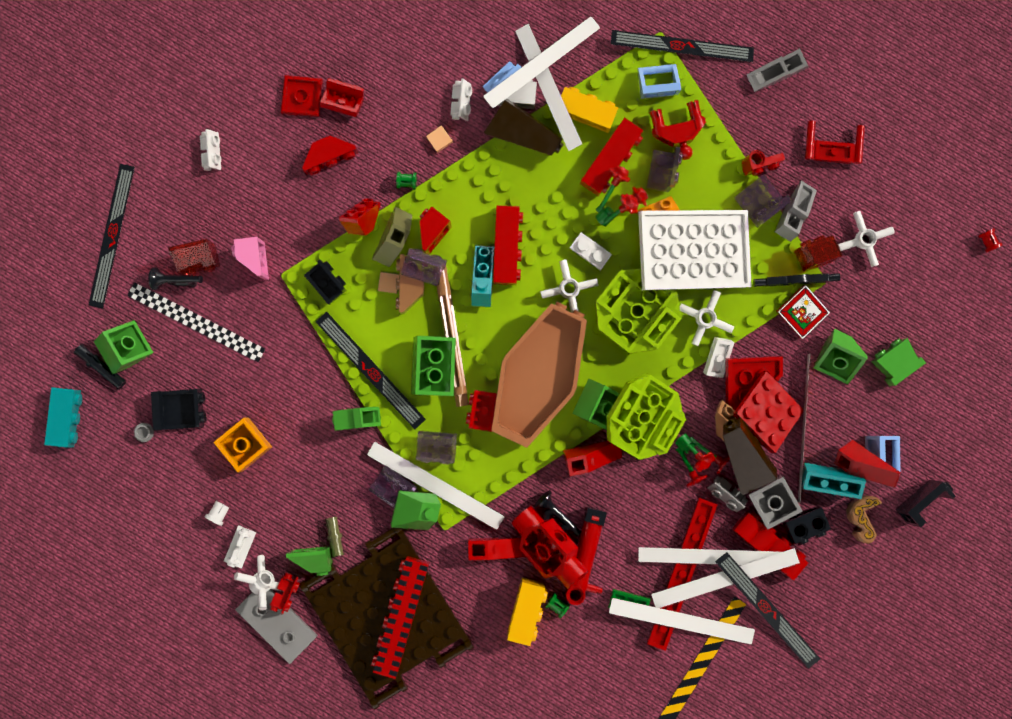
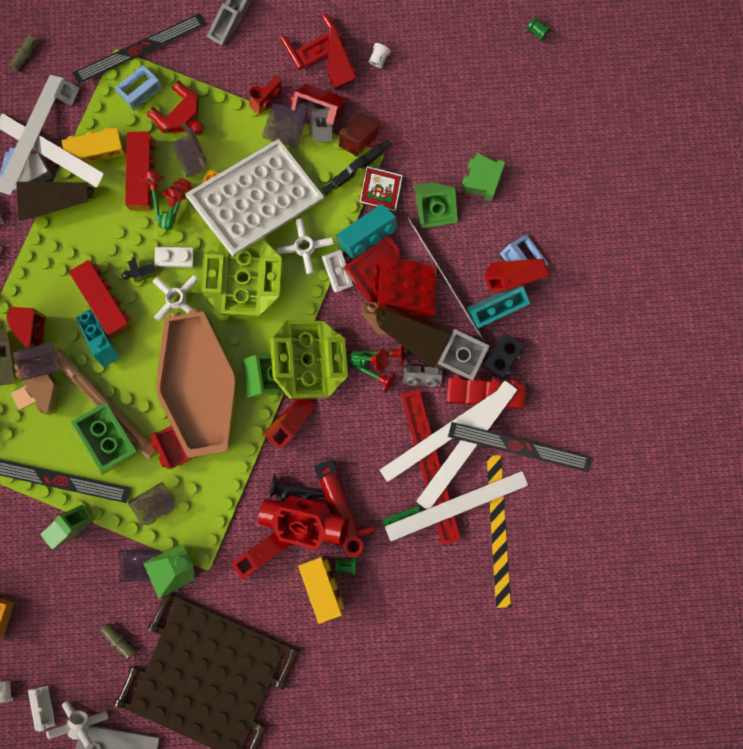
camera: 35 degrees left, 5 degrees down
(282, 601) = (108, 728): red hinge -> none
(314, 560) = (110, 674): bright green slope -> none
(401, 616) = (217, 669): red brick -> none
(435, 485) = (175, 537): white sticker -> none
(551, 245) = (138, 273): none -> black piece
(595, 43) = (66, 92): none -> light grey tile
(767, 342) = (367, 231): none -> teal brick
(808, 199) = (333, 101): none -> red panel
(842, 179) = (338, 66): none -> red slope
(858, 517) = (540, 321): medium nougat animal -> none
(873, 236) = (390, 92): white bar -> none
(883, 193) = (379, 55): none -> white bush
(910, 509) = (576, 287): black panel -> none
(990, 240) = (488, 35): red bush -> none

